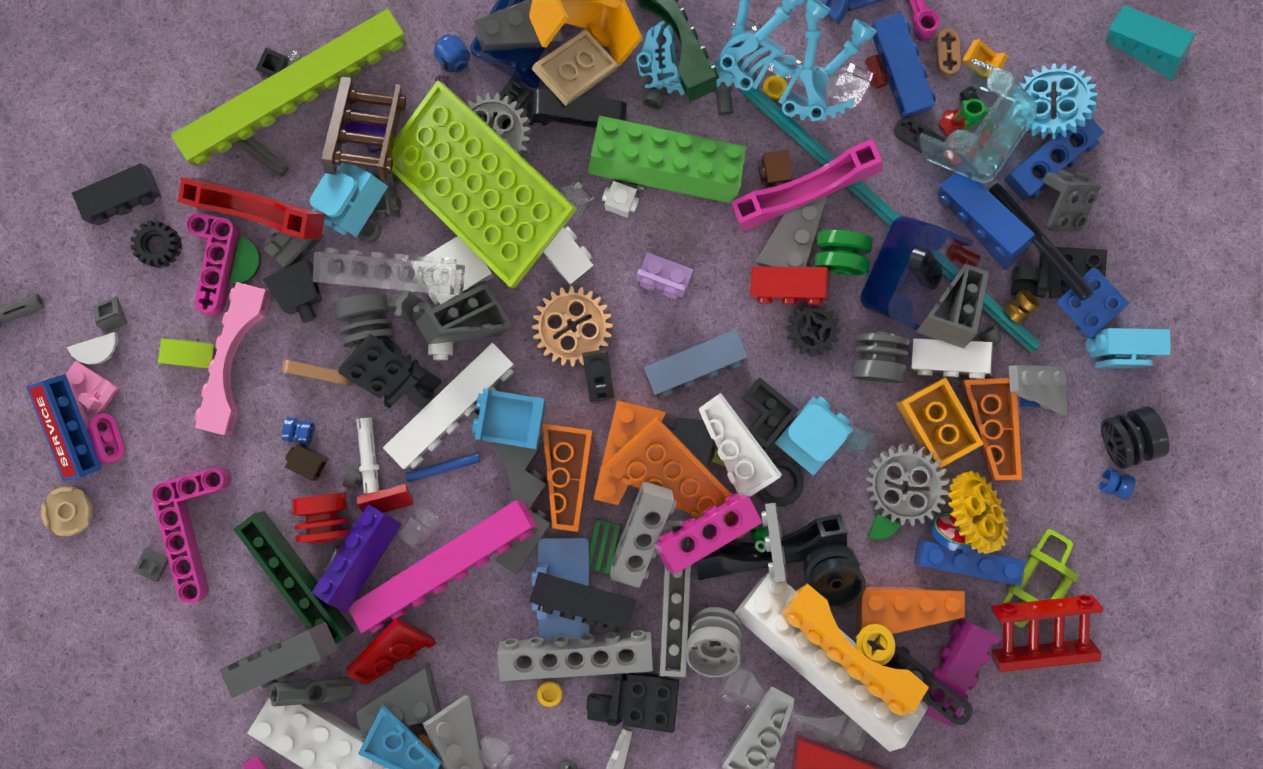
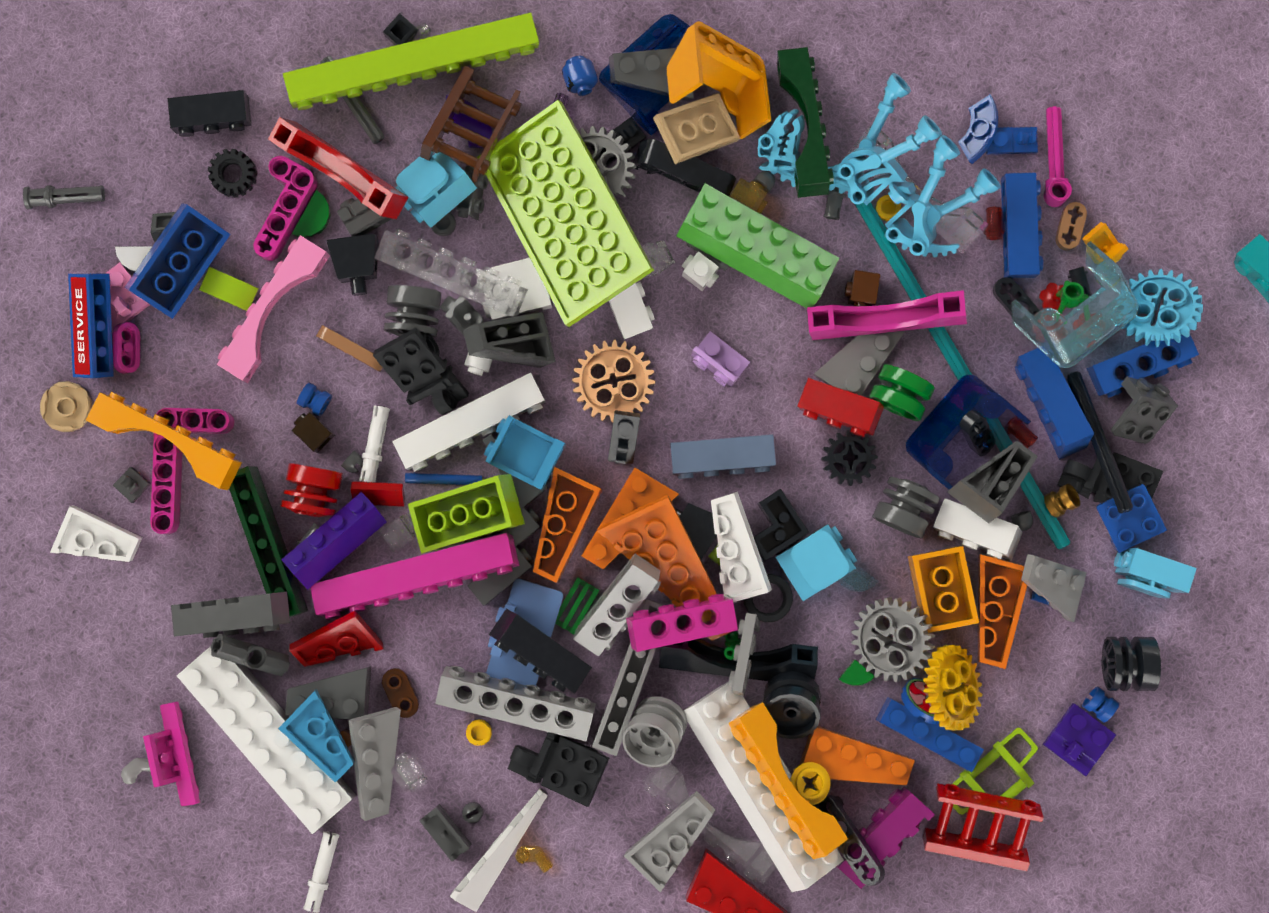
camera: 20 degrees right, 0 degrees up
(127, 342) = (177, 260): none -> blue brick
(129, 625) = (92, 536): none -> white wing
(214, 524) = (208, 463): none -> light orange arch
(467, 678) = (402, 692): none -> reddish brown plate
(473, 493) = (466, 513): none -> lime brick
(645, 114) = (750, 195): none -> clear yellow brick
(1107, 522) = (1079, 739): none -> dark purple hinge

